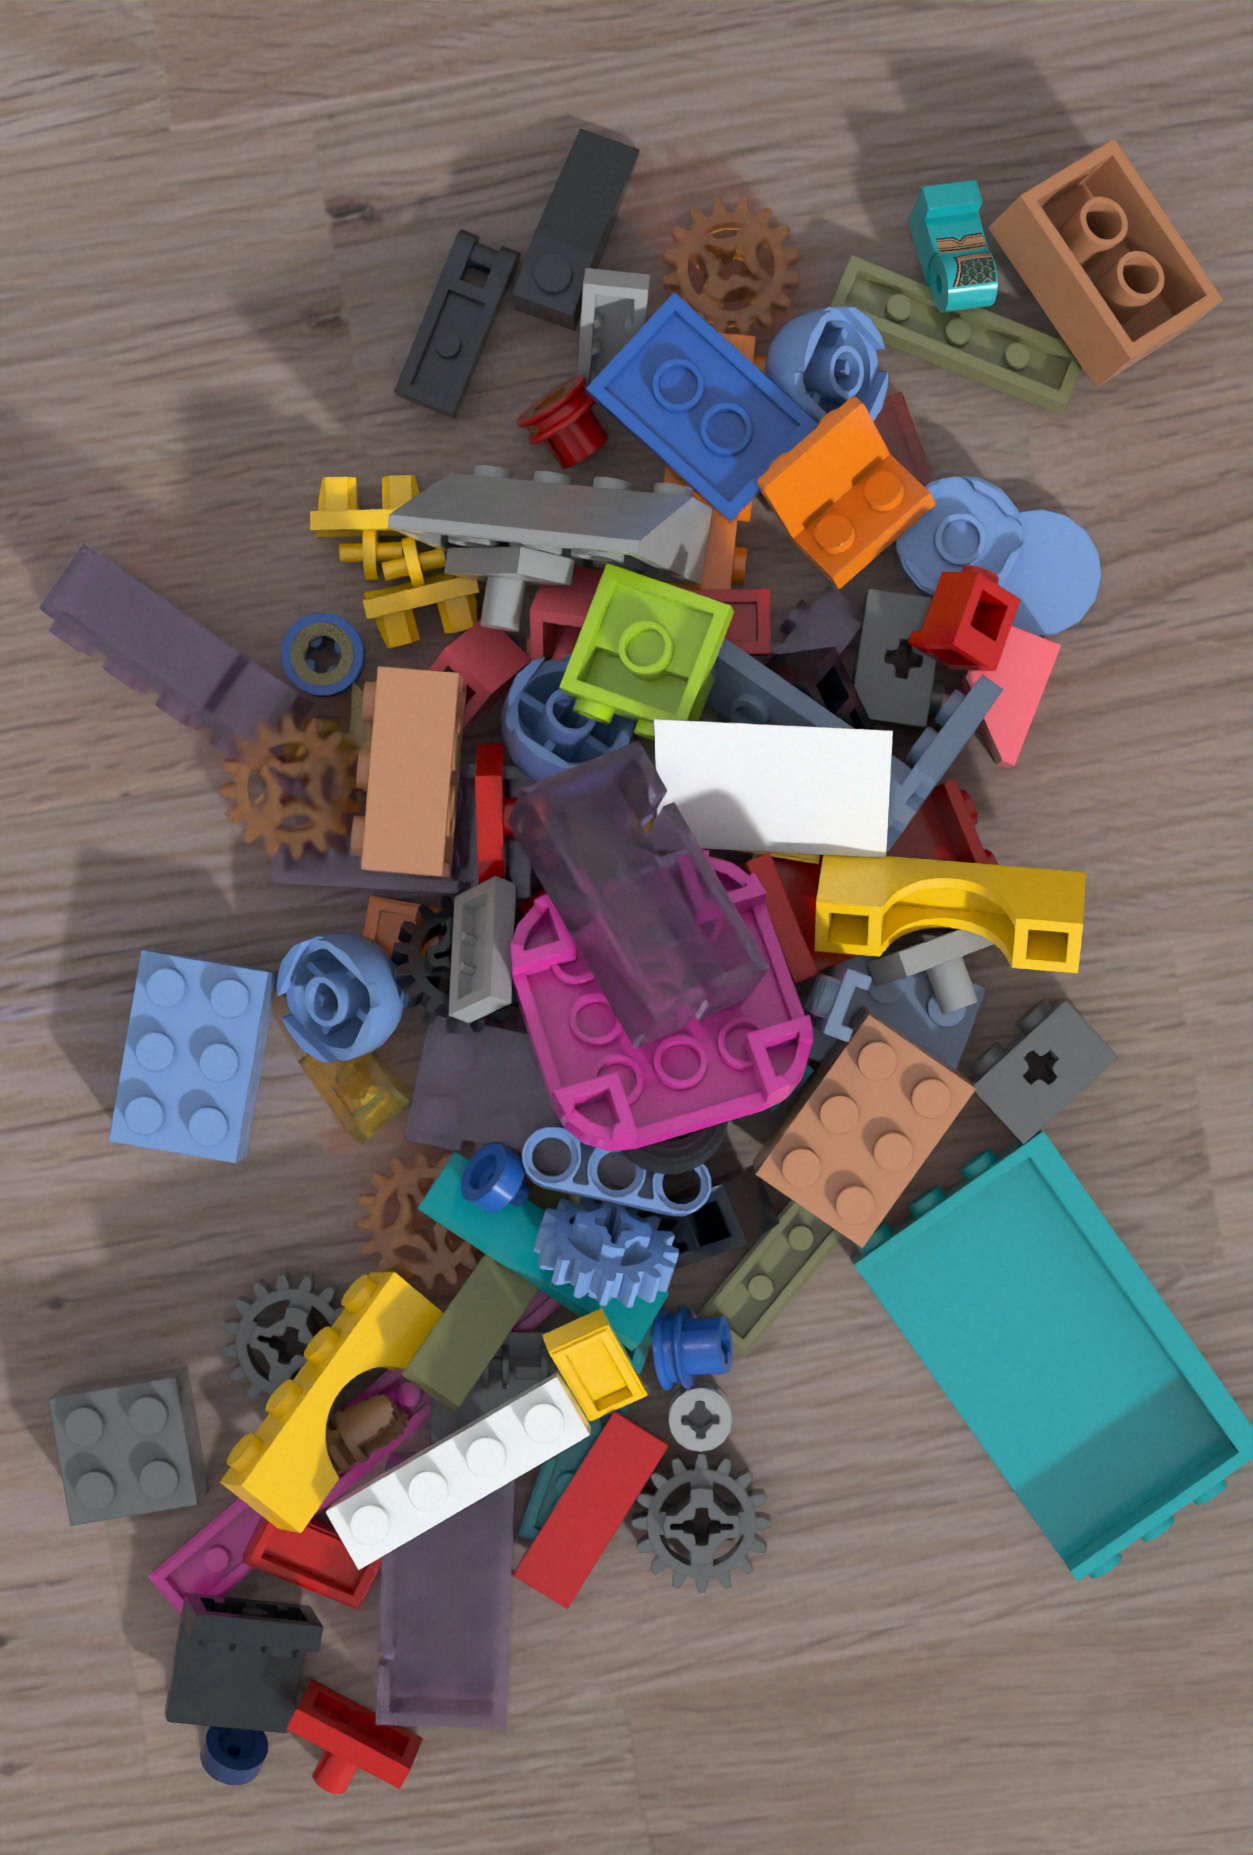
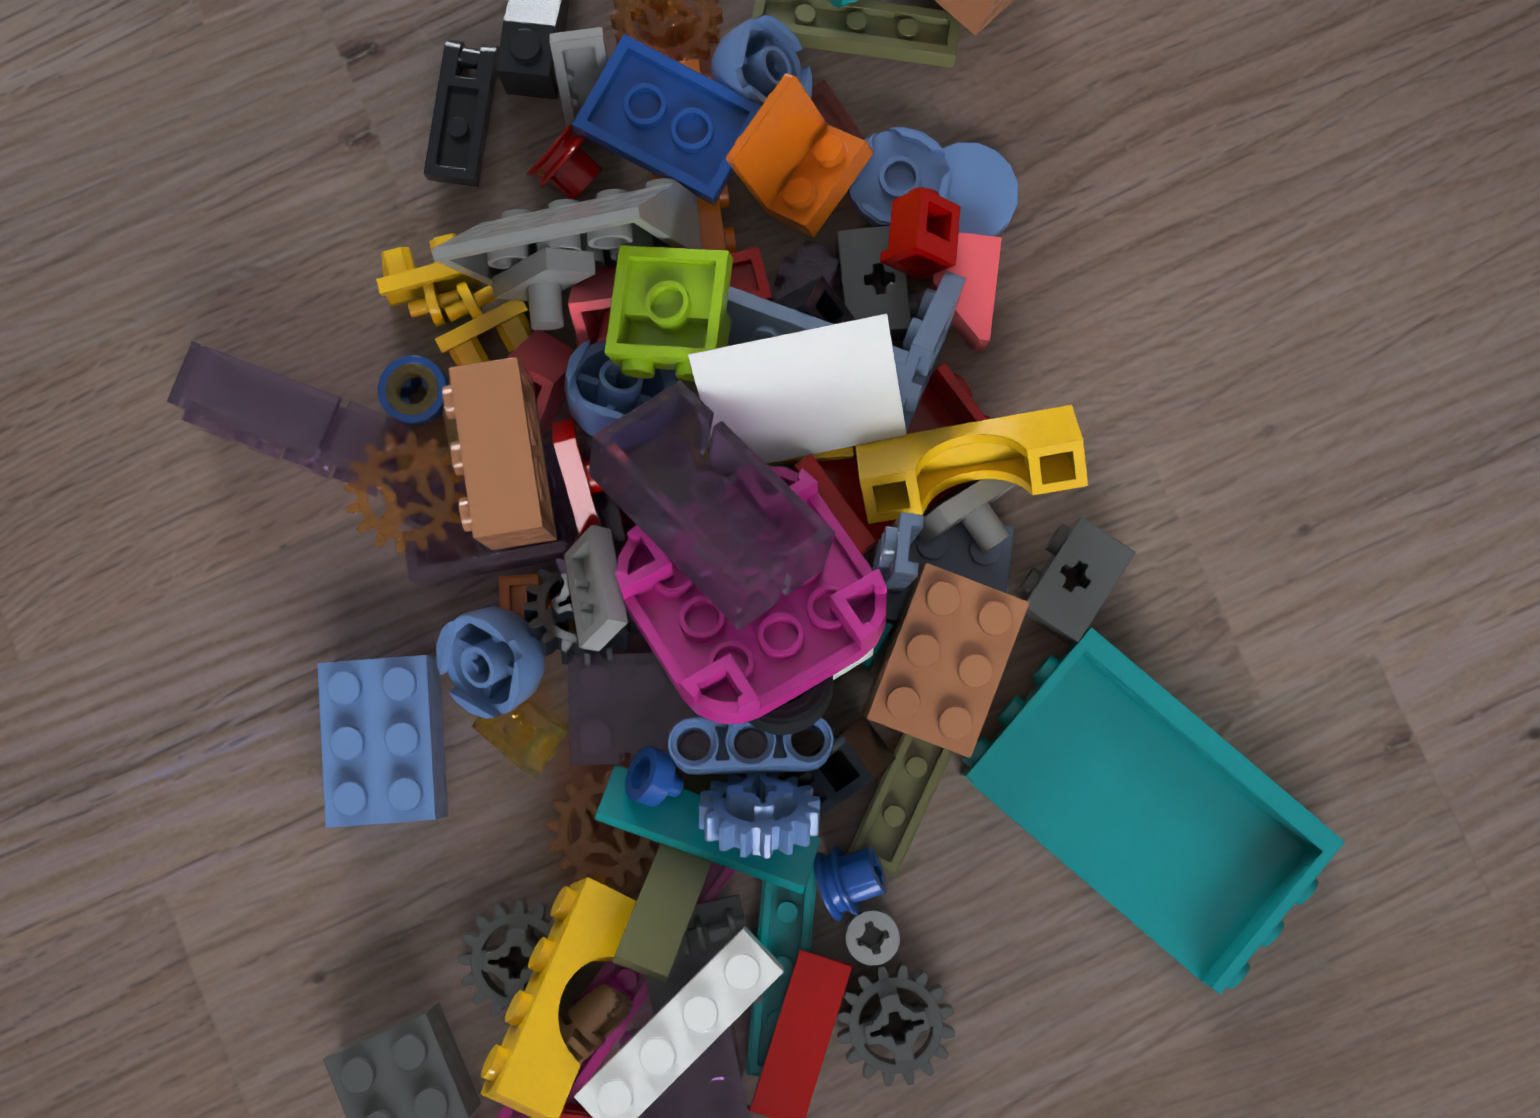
camera: 10 degrees left, 5 degrees down
(595, 1364) = (773, 913): yellow tile -> none

